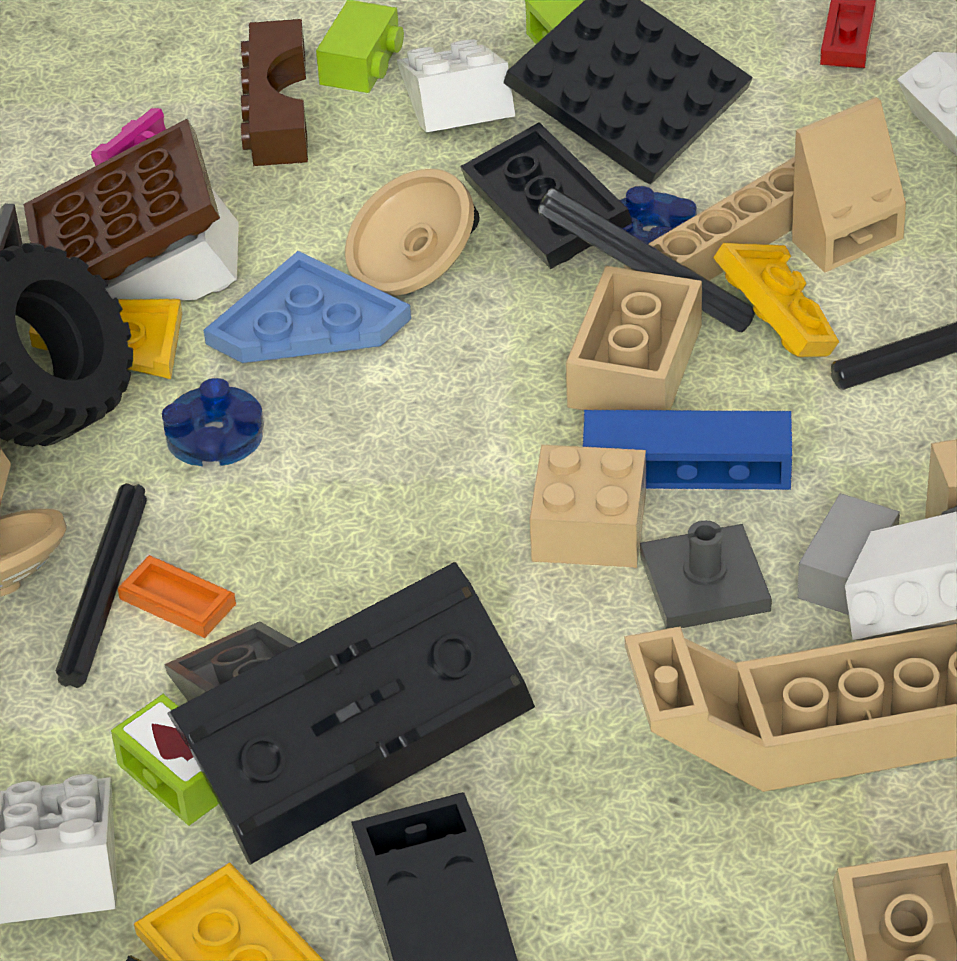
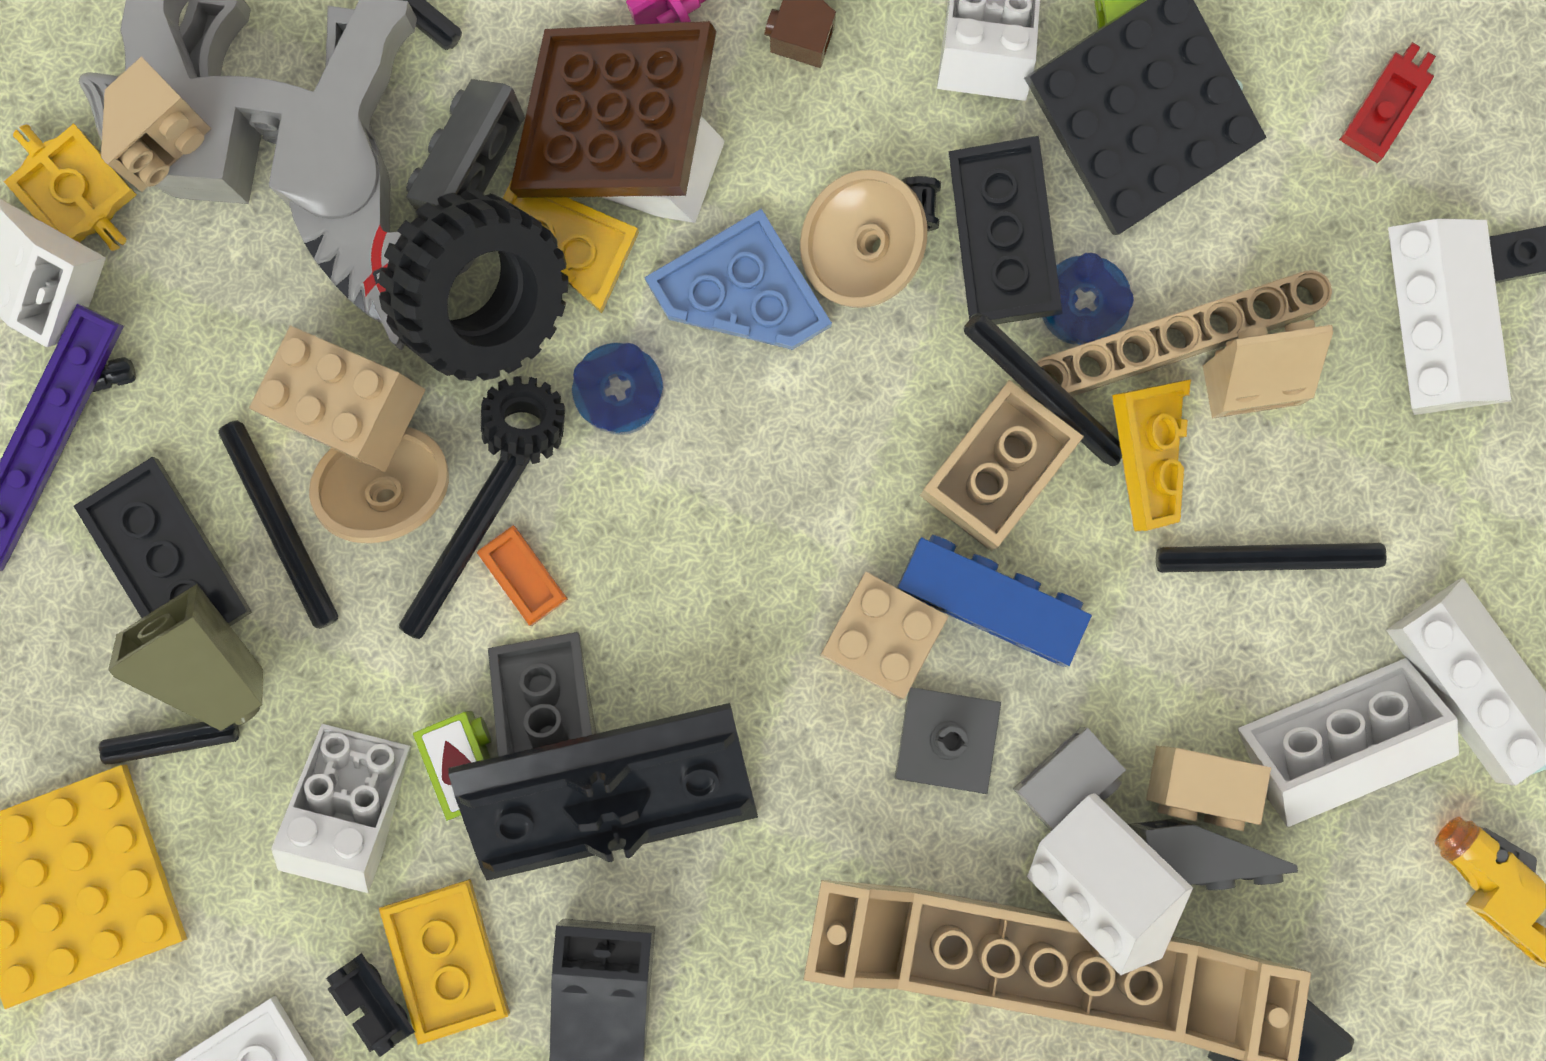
camera: 20 degrees right, 40 degrees up
(124, 460) = (525, 399): none -> black tyre

